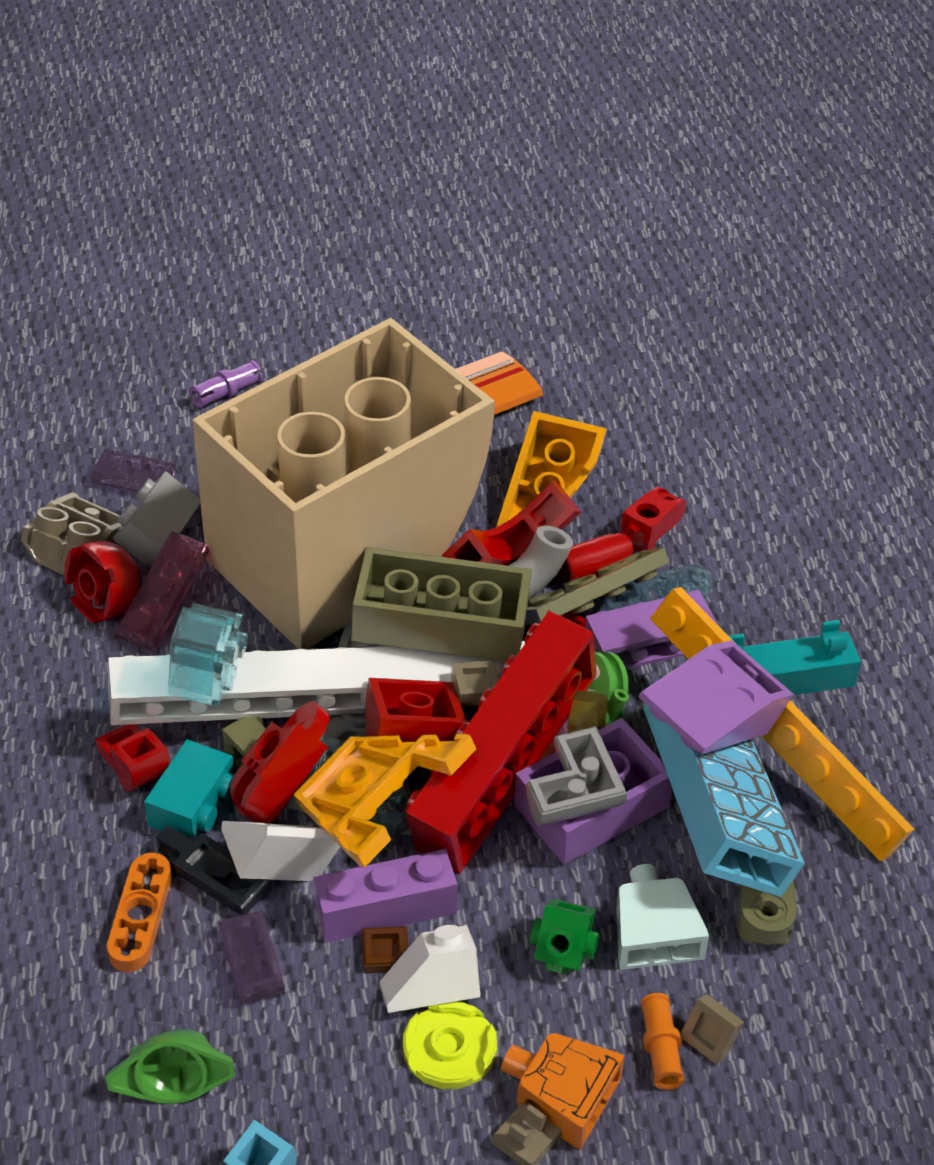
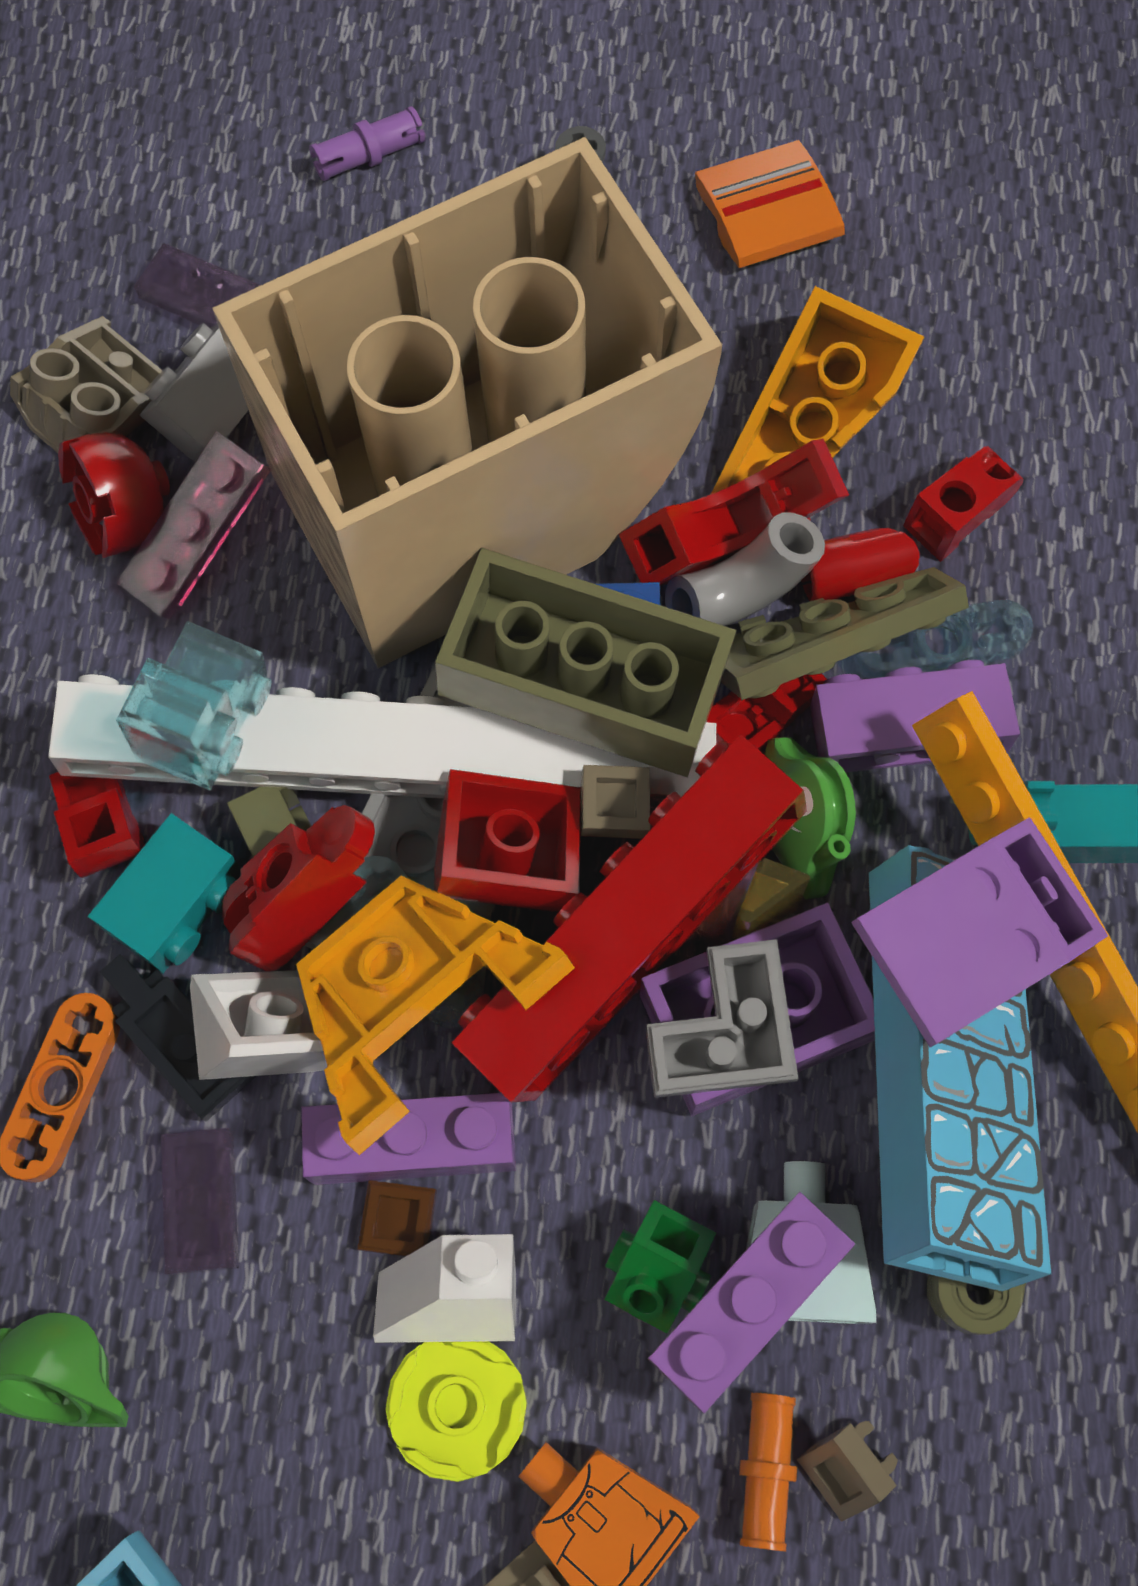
camera: 15 degrees right, 25 degrees up
(626, 924) = (751, 1302): none -> medium lavender brick

